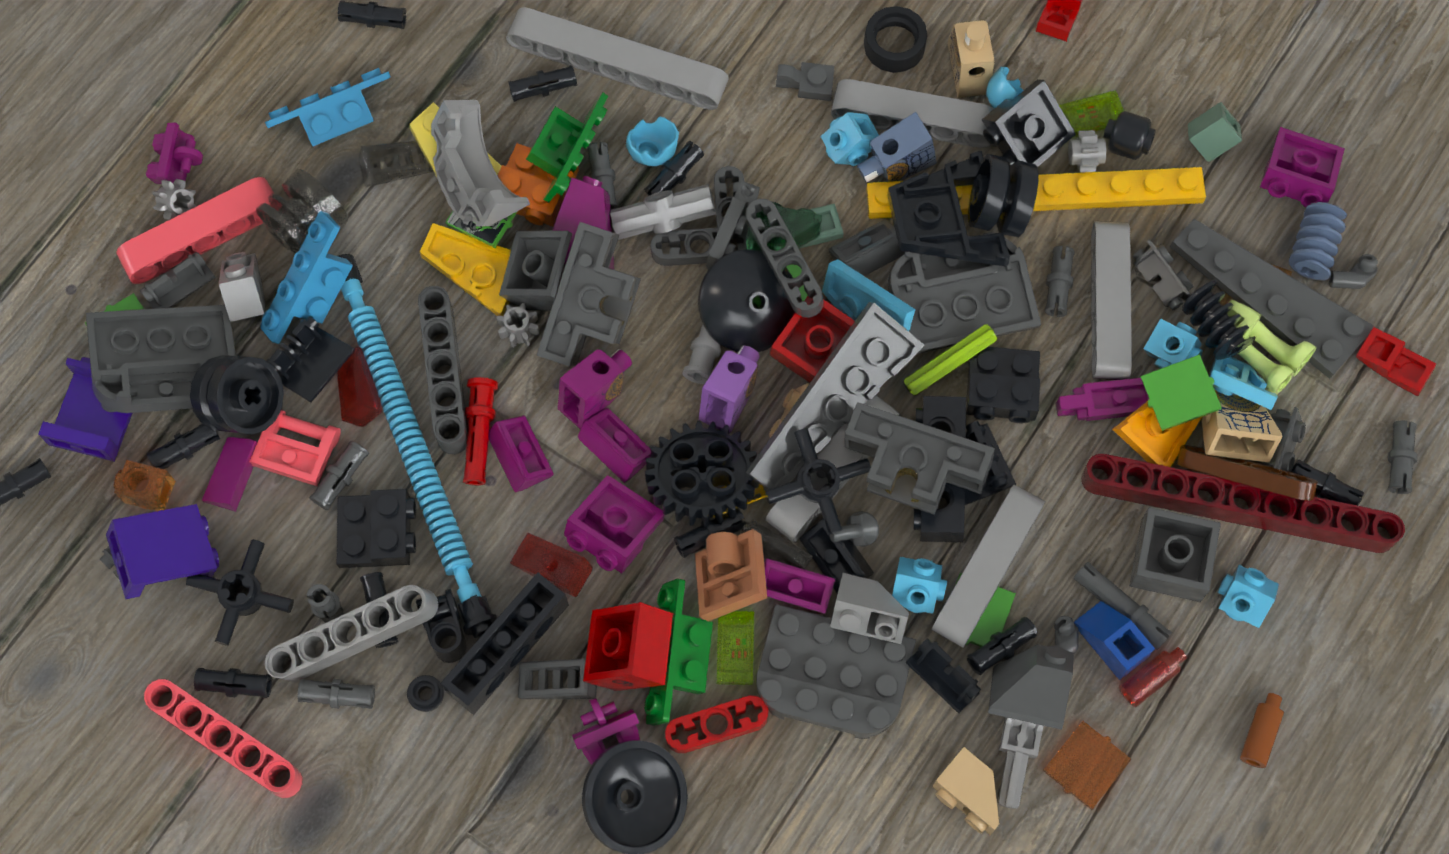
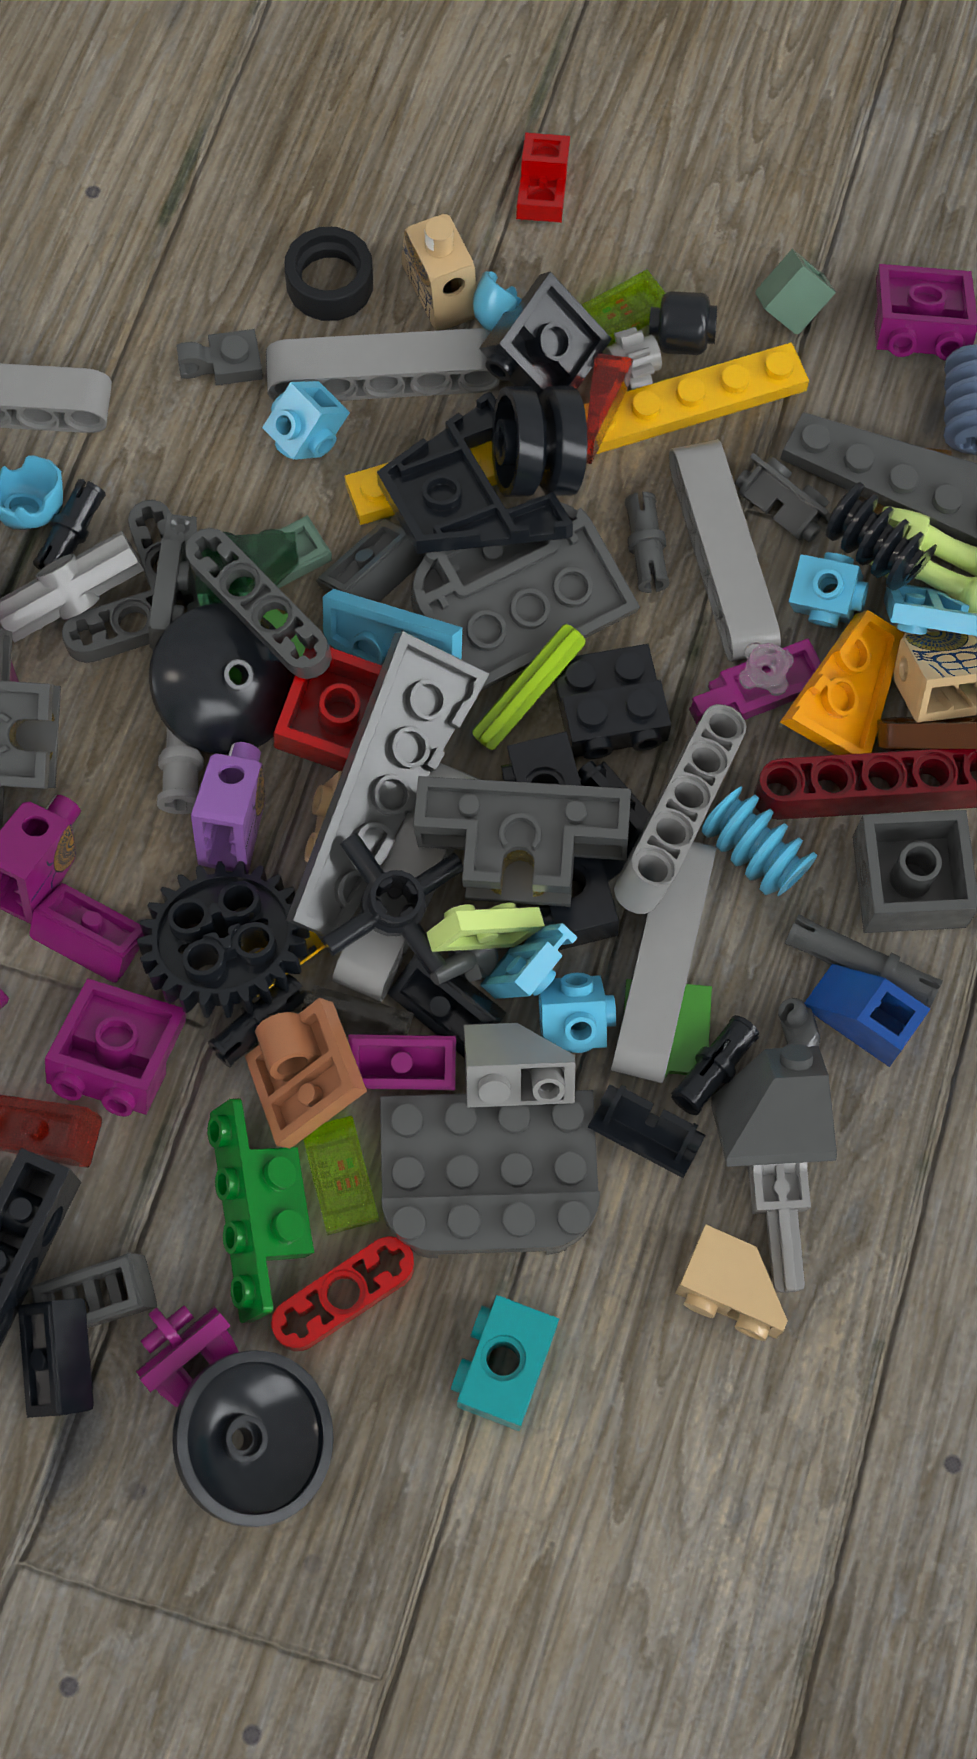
camera: 20 degrees left, 0 degrees up
(524, 711) = (55, 1358): none -> black slope
(628, 647) = (184, 1219): red brick -> none
(805, 819) = (529, 1337): none -> teal brick
(871, 513) = (484, 928): none -> yellowish green plate
(896, 546) = (529, 966): none -> medium azure plate
(900, 151) = (379, 420): sand blue torso -> none
(1027, 469) = (680, 809): none -> light grey beam
(1062, 169) = (608, 388): none -> clear red slope
(1073, 507) = (757, 843): none -> medium azure piece
(1087, 765) = (880, 1199): clear orange piece -> none
(1121, 383) = (766, 655): none -> clear plate
(1152, 676) = (933, 1049): clear red cylinder -> none
(1181, 392) = (859, 646): bright green piece -> none

